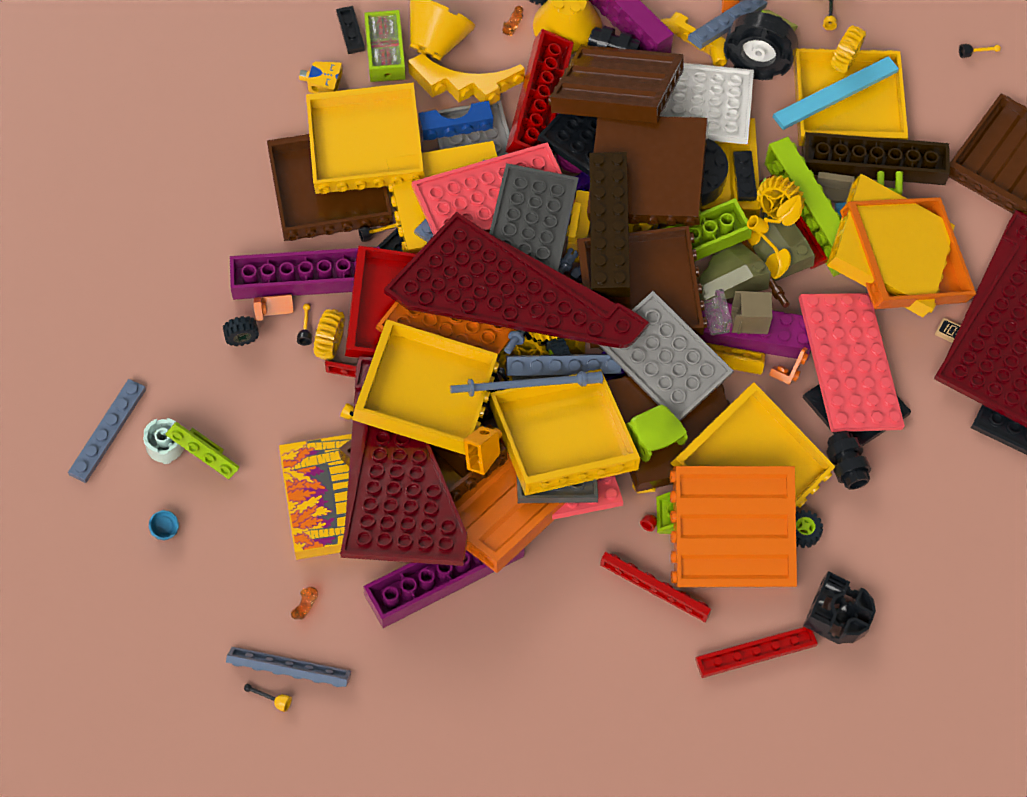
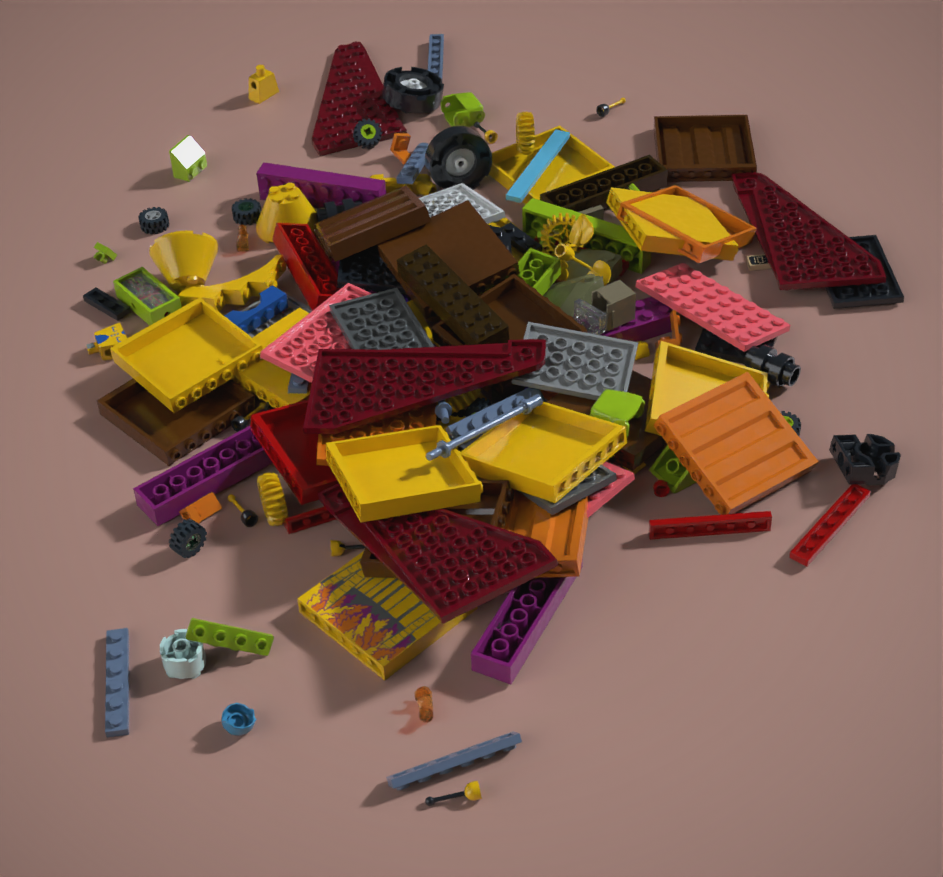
camera: 30 degrees left, 20 degrees down
(482, 449) = (492, 480): light orange torso -> none

